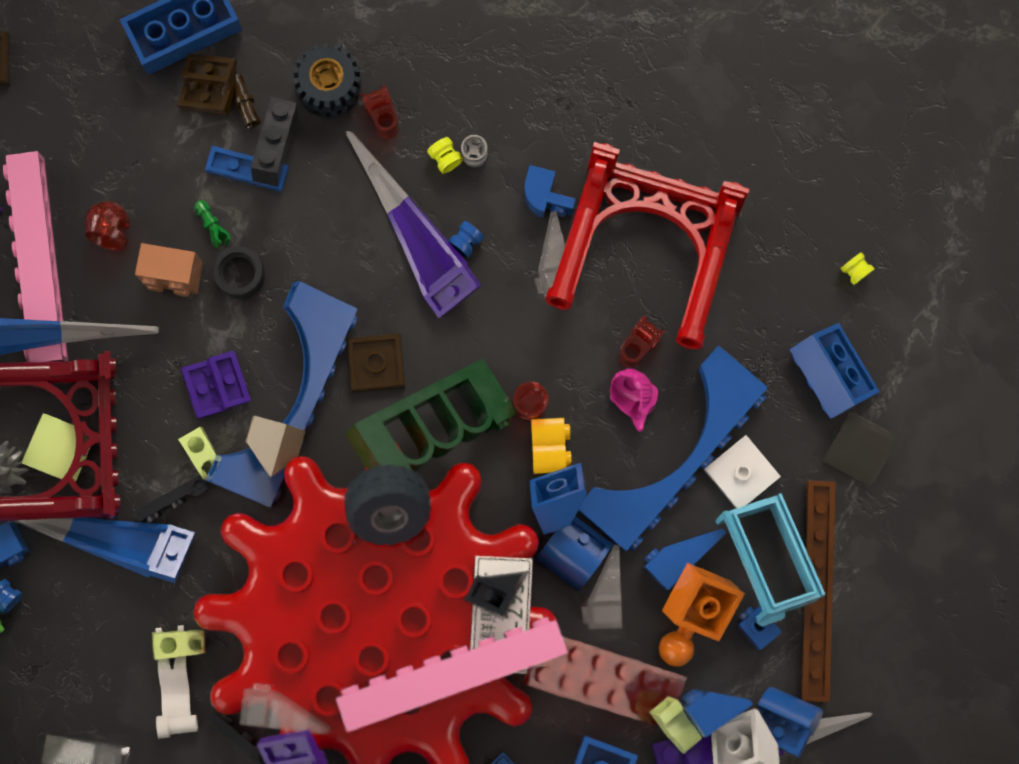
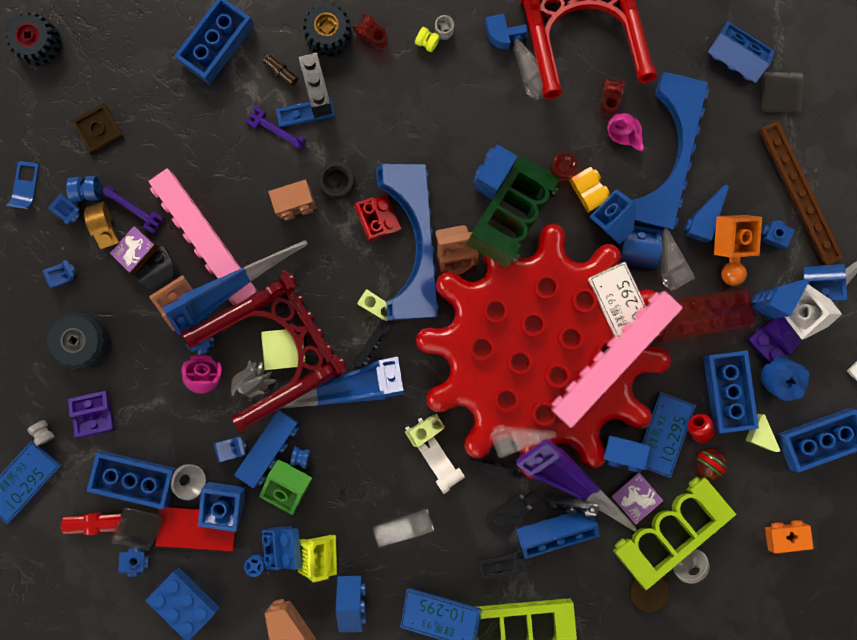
camera: 25 degrees left, 5 degrees up
(104, 223) = (234, 190): clear red helmet -> none
(208, 84) = (252, 70): dark brown slope -> none
(211, 223) = (302, 159): green piece -> none
(215, 385) = (360, 259): dark purple slope -> none
(216, 201) = (298, 143): none -> dark purple hinge
(263, 344) = (377, 217): none -> red brick
(274, 443) = (420, 274): slope -> none
(328, 441) = (453, 252): none -> nougat piece
(375, 362) = (453, 193): dark brown tile -> none
(387, 504) = (520, 273): black wheel -> none
(434, 359) = (494, 171): none -> blue brick
(435, 262) = (460, 112): dark purple plate -> none
(466, 238) = (469, 85): blue wheel -> none
(495, 592) = (616, 294): black slope -> none
(675, 724) = (759, 319): yellowish green leg -> none
(742, 472) = (716, 145): white plate -> none
(814, 591) = (774, 172): medium azure piece -> none

